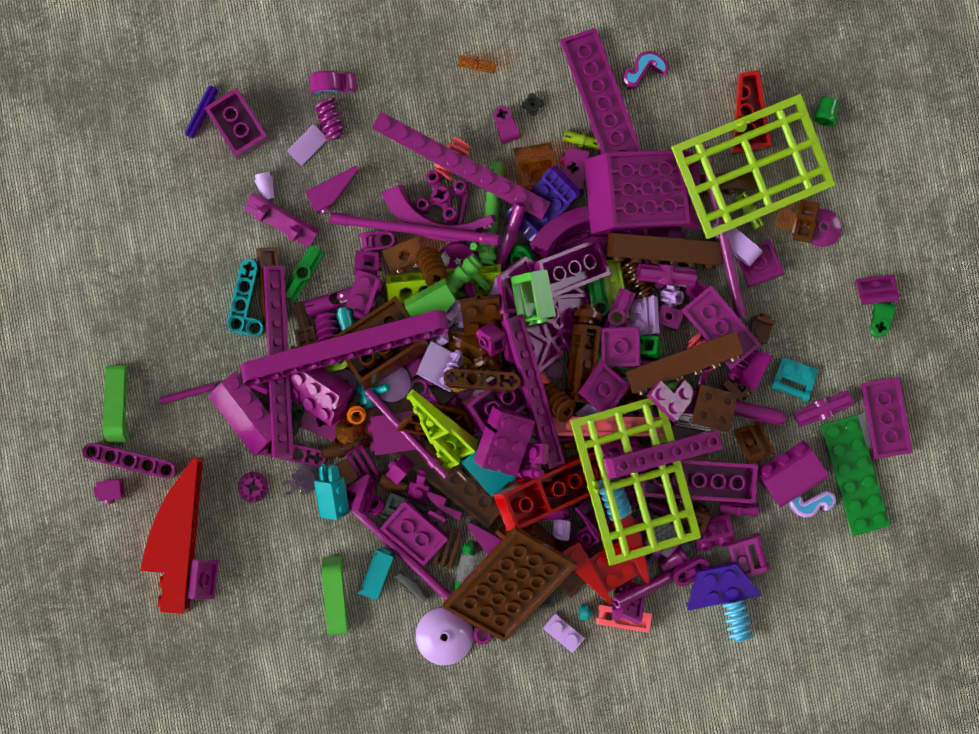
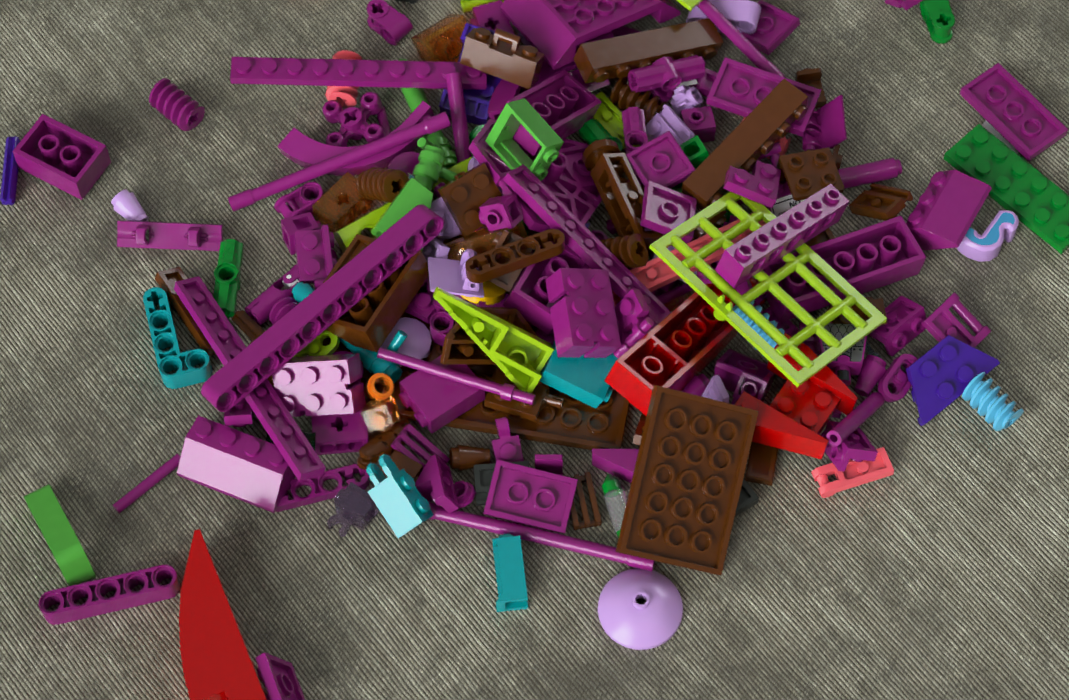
camera: 30 degrees left, 25 degrees down
(109, 491) = (99, 644): magenta brick -> none
(260, 482) = (301, 557): magenta gear -> none
(307, 145) = (160, 146): lavender slope -> none
(328, 192) = (212, 181): magenta slope -> none
(332, 82) = (156, 63): magenta animal -> none
(334, 595) = (471, 623): bright green beam -> none
(399, 469) = (469, 431): magenta plate -> none
(412, 586) = (563, 566): dark grey pin -> none
(440, 501) = (541, 445): magenta slope -> none
(481, 637) = (687, 581): magenta plate -> none
(559, 210) = (502, 56): none -> reddish brown piece
(563, 633) = (789, 528): lavender plate -> none
(585, 612) = (800, 489): teal plate -> none
(739, 508) = (910, 284): magenta pin -> none
(796, 373) = (879, 117): teal plate -> none
(823, 408) = (935, 135): magenta piece -> none

